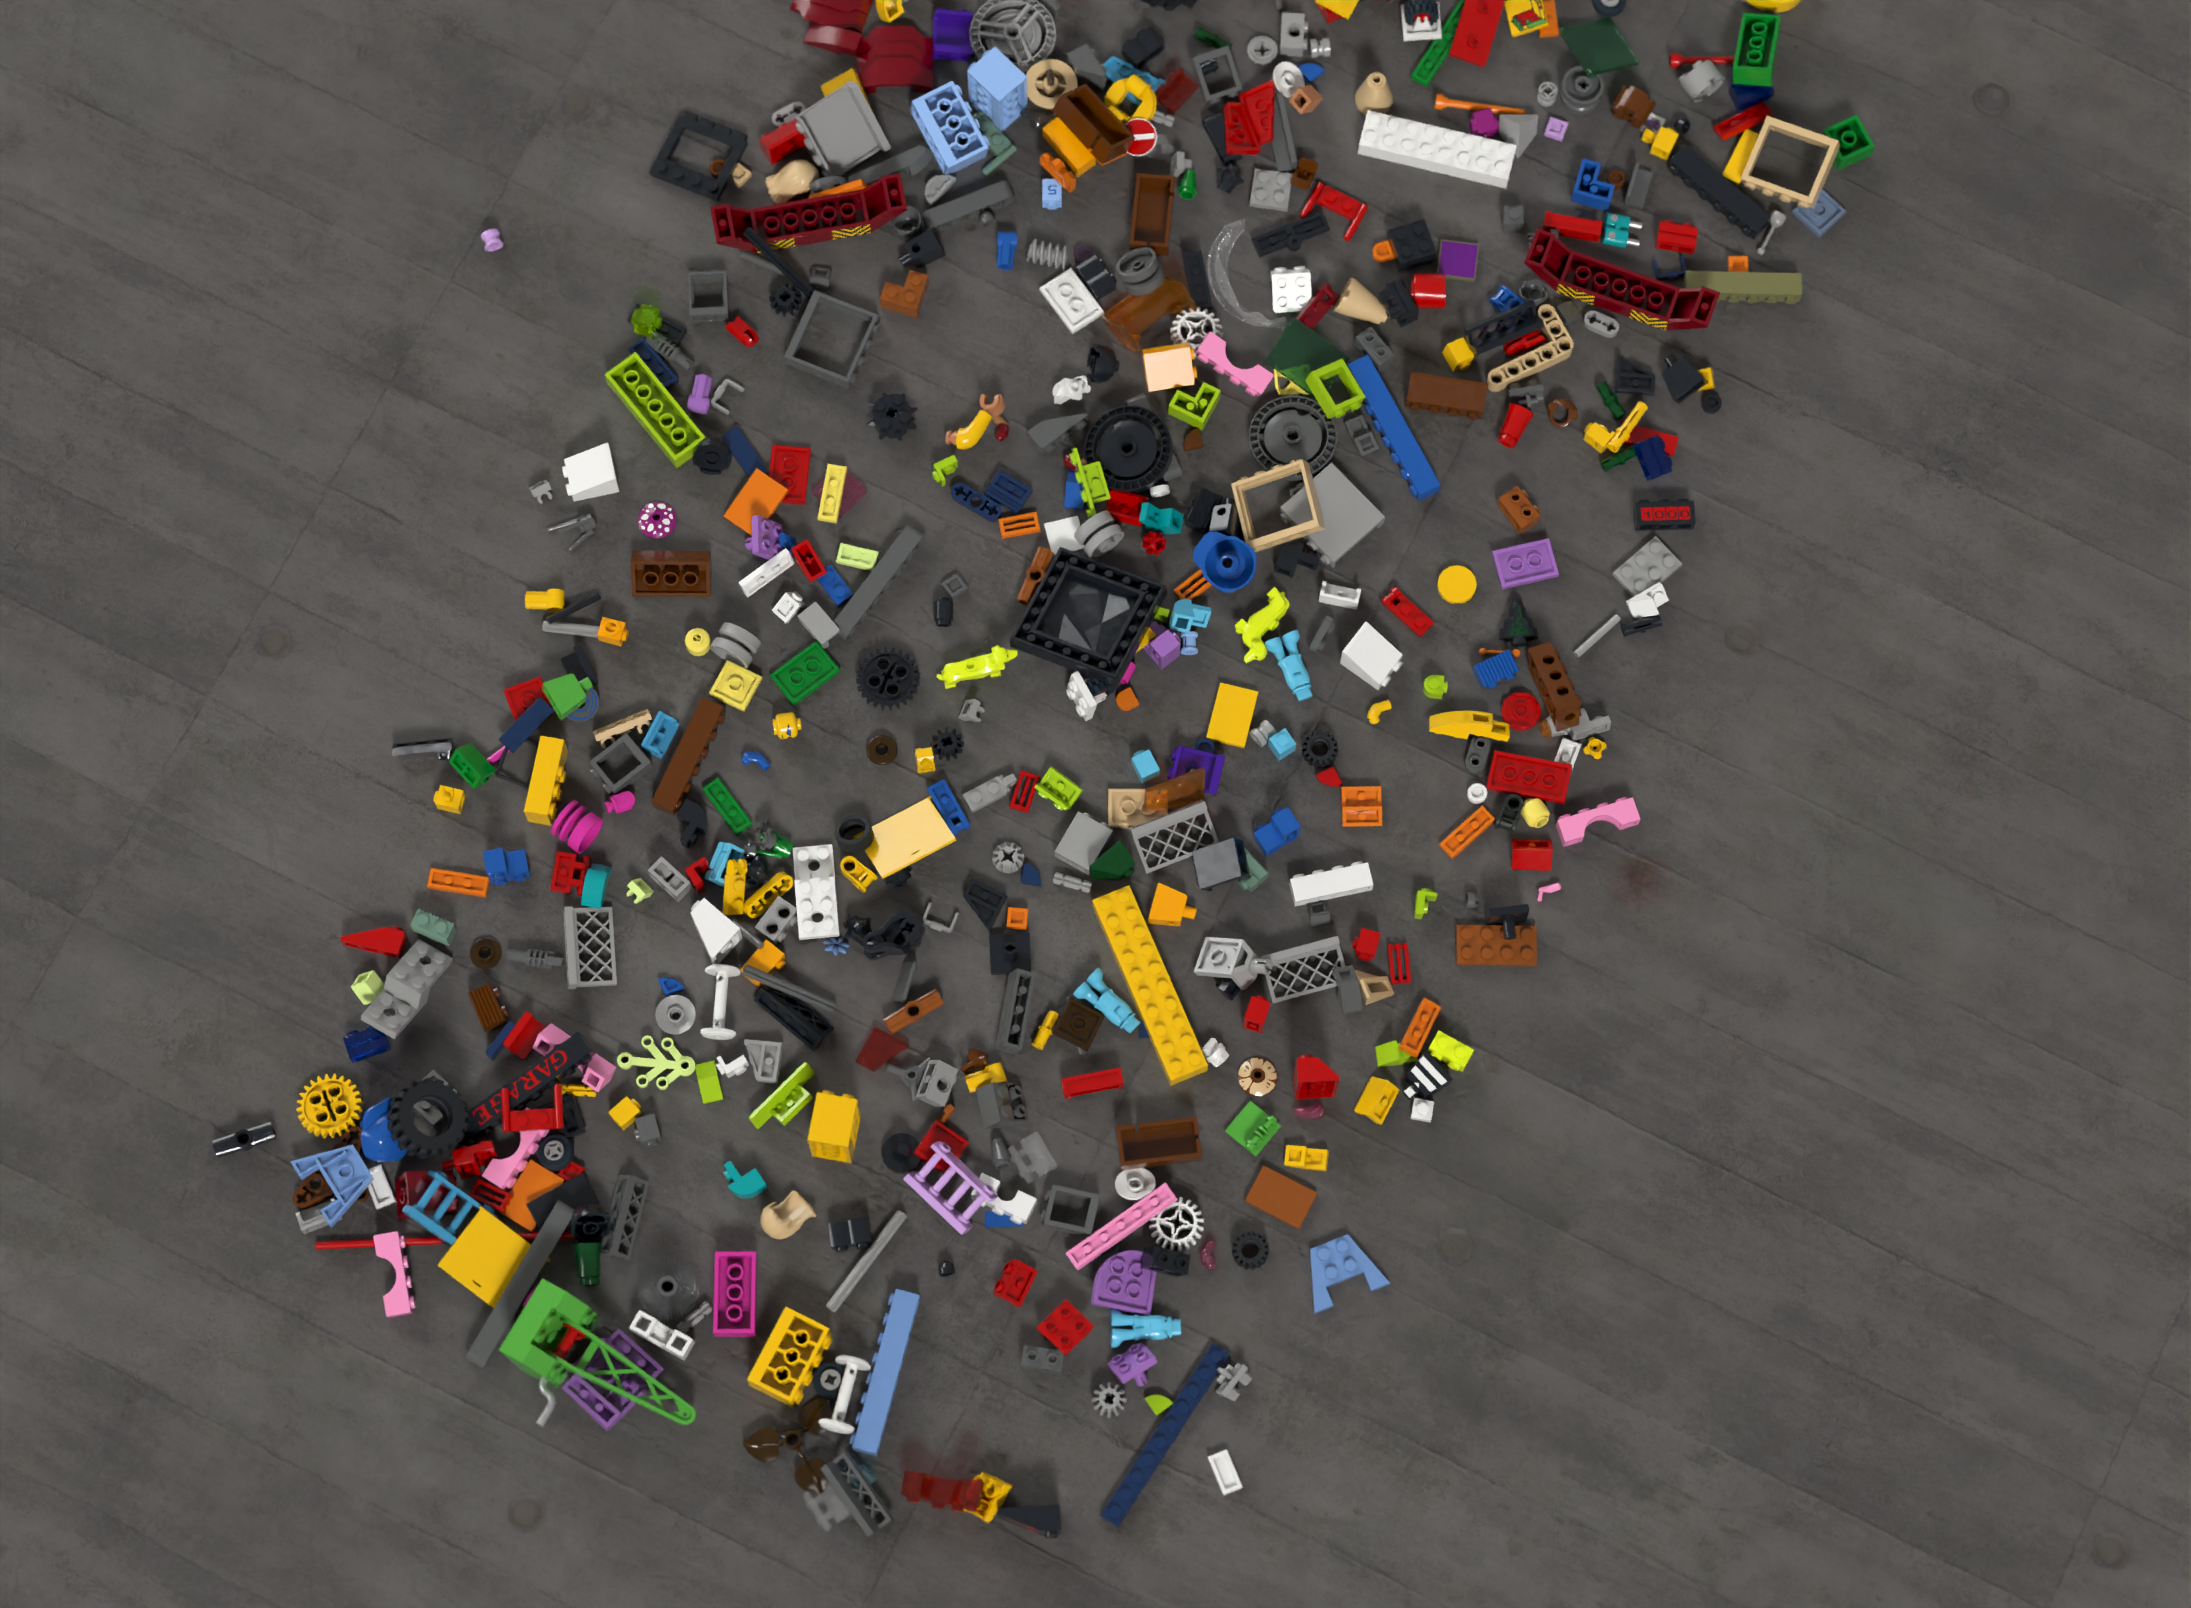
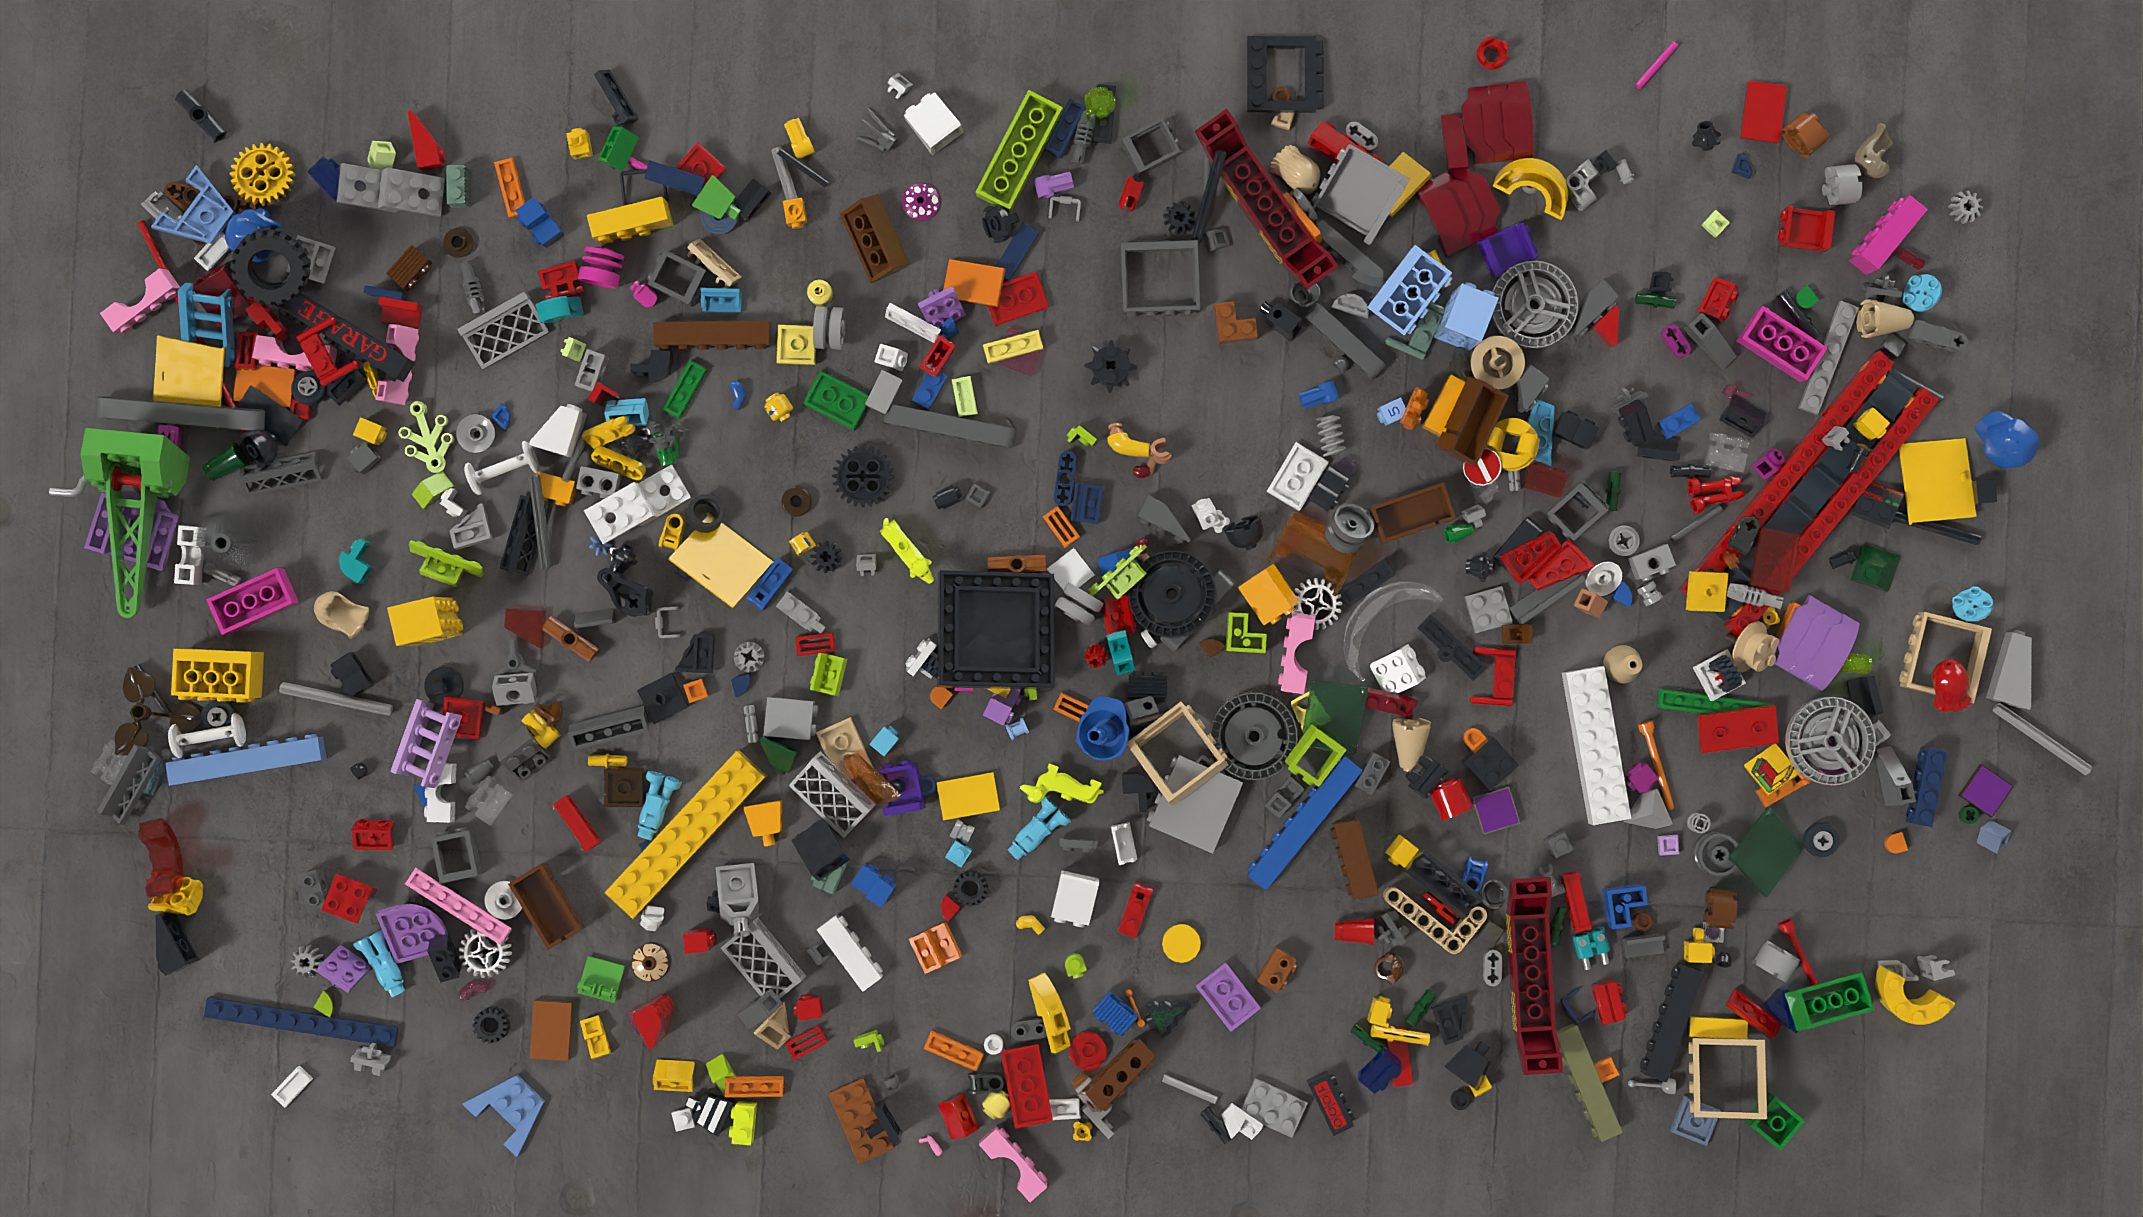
camera: 65 degrees right, 15 degrees up
(1187, 614) = (1039, 715): medium azure brick -> none
(1581, 247) = (1557, 925): none -> dark green pin

